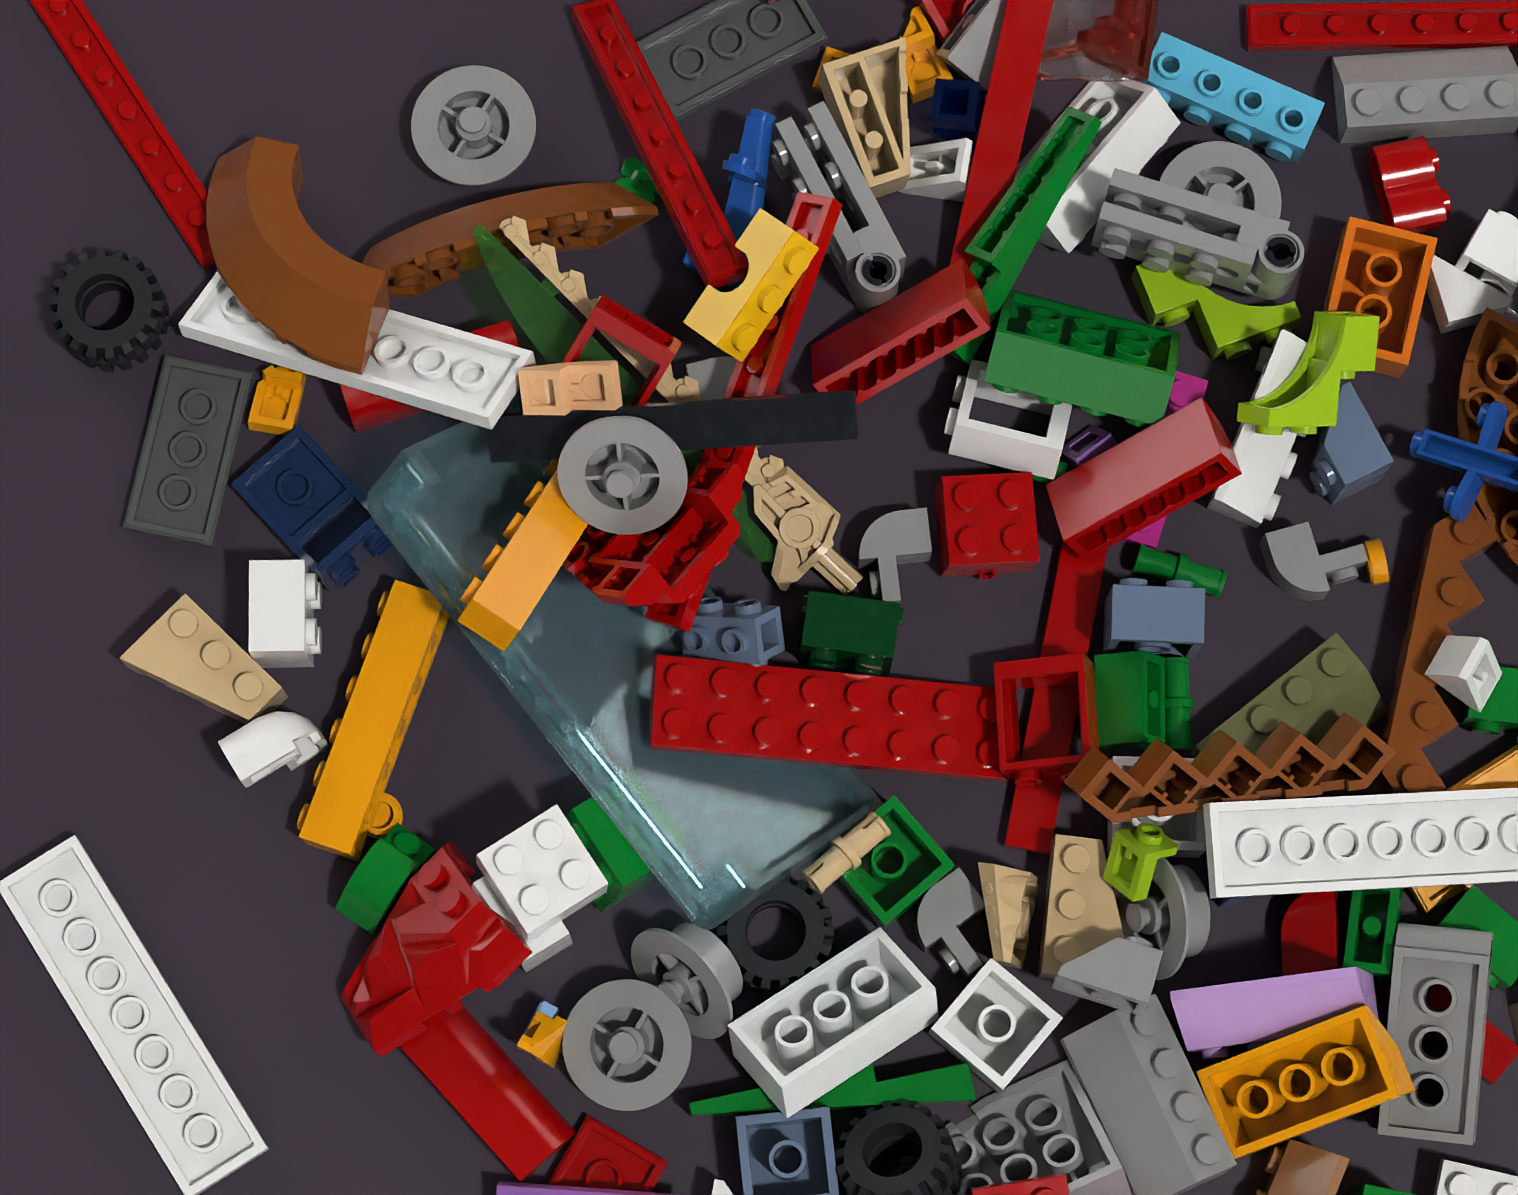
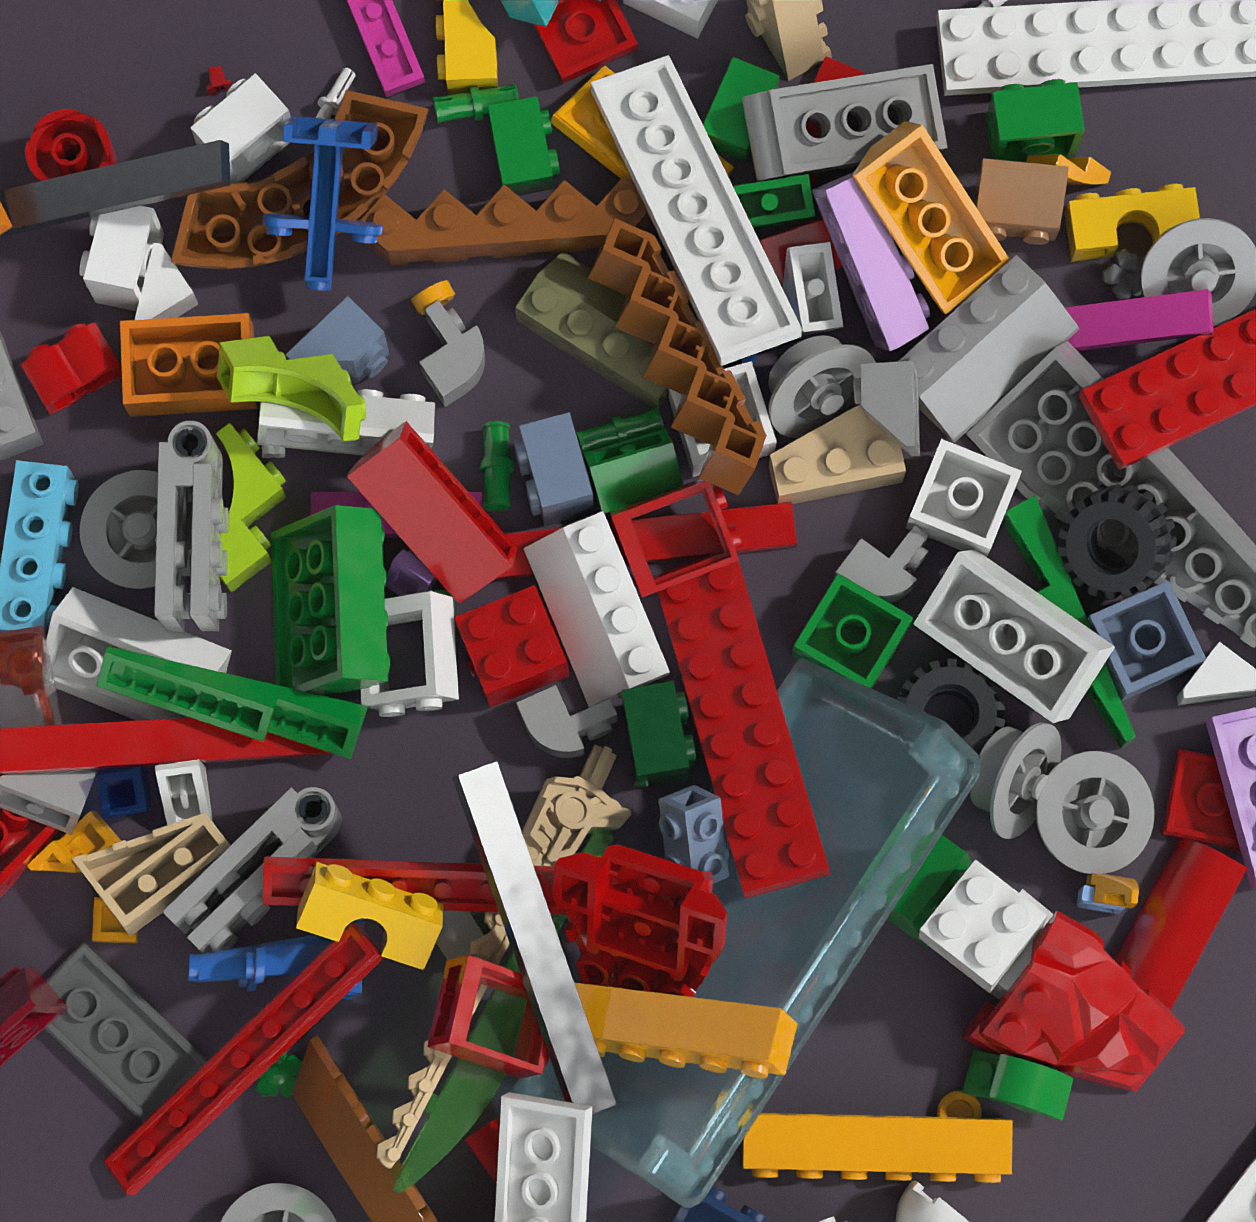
camera: 105 degrees left, 0 degrees up
(570, 387) = (530, 1055): light nougat slope -> none
(622, 475) = (595, 968): light grey wheel -> none
(846, 852) = (863, 667): tan pin -> none
(902, 334) = (365, 774): red brick -> none
(995, 620) = (596, 609): none -> white slope
(1009, 906) = (853, 519): tan slope -> none
(1135, 858) = (783, 414): lime bracket -> none
(1264, 940) = (812, 288): none -> white slope
(1466, 669) = (516, 186): white slope -> none

